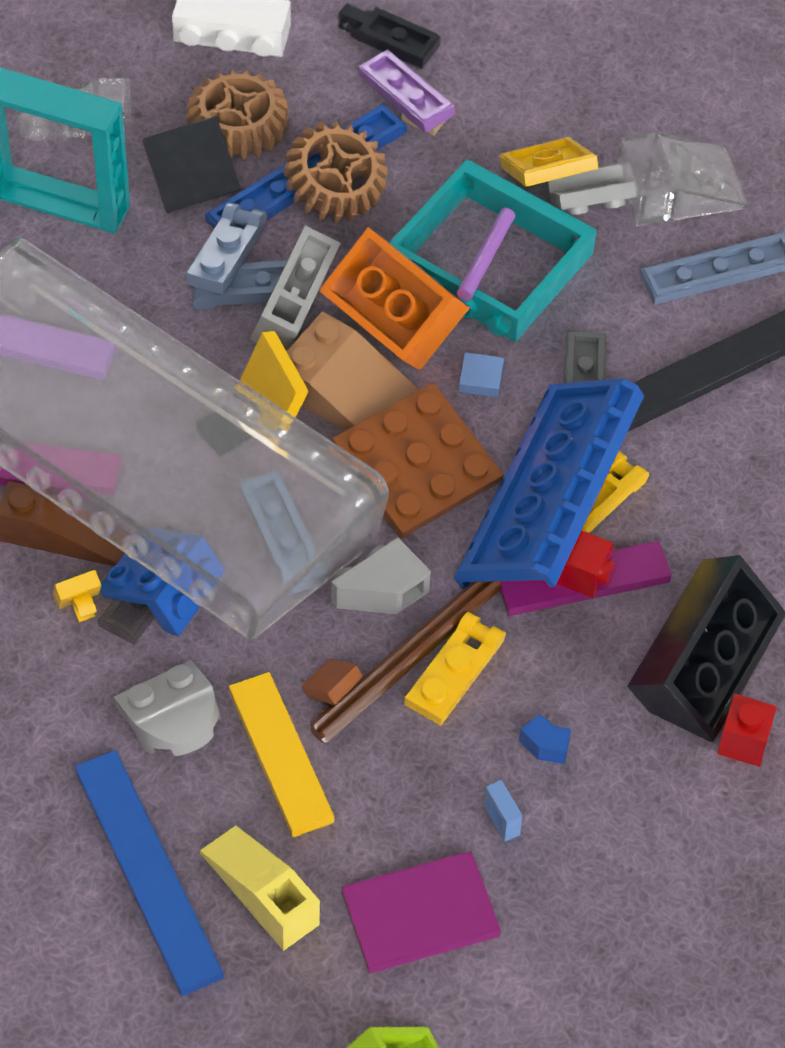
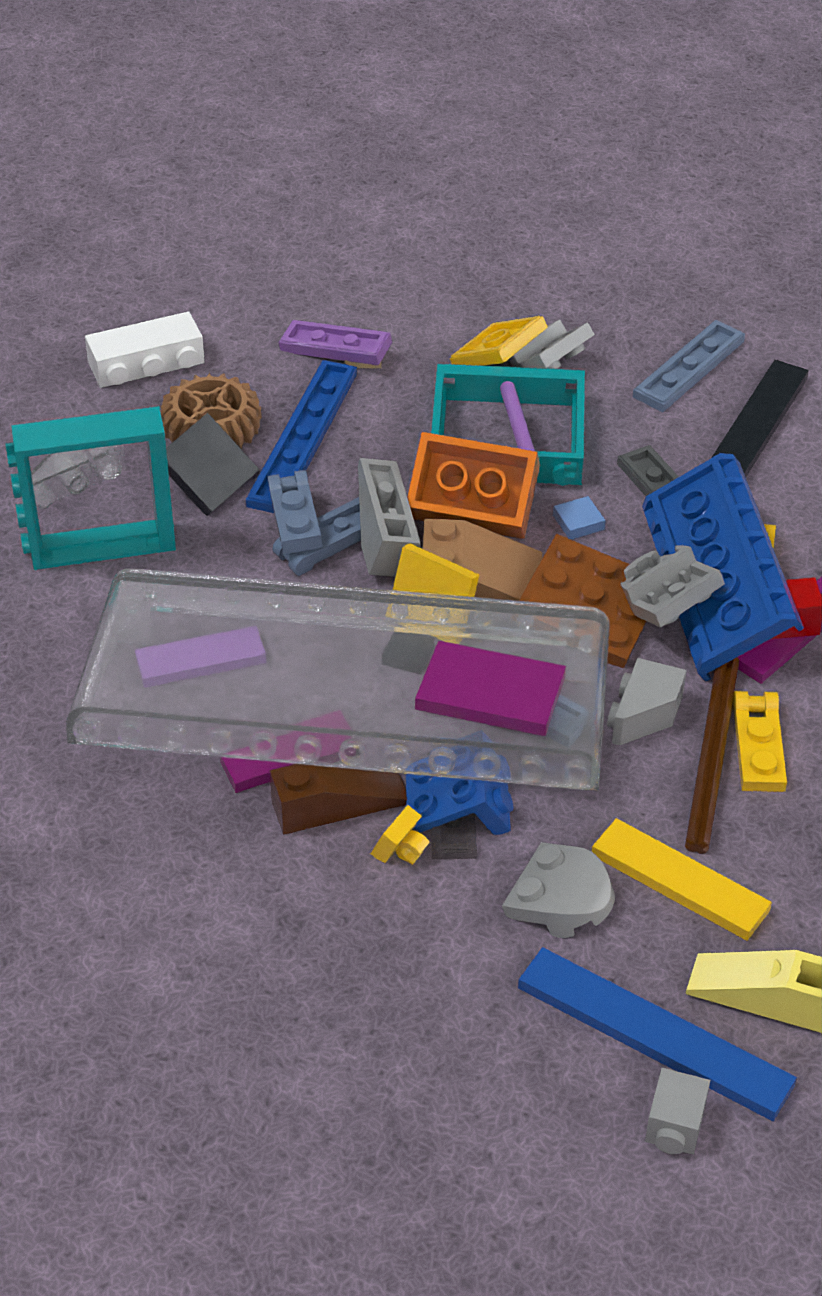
camera: 30 degrees left, 10 degrees down
(101, 945) = (677, 1112): none -> light grey brick
(215, 504) = (491, 688): none -> magenta tile
(329, 182) = (335, 418): medium nougat gear -> none
(332, 681) = (675, 798): dark orange tile -> none
(390, 32) = (282, 308): black hinge -> none
(476, 482) = (668, 584): none -> light grey slope
(678, 178) = (611, 310): clear slope -> none

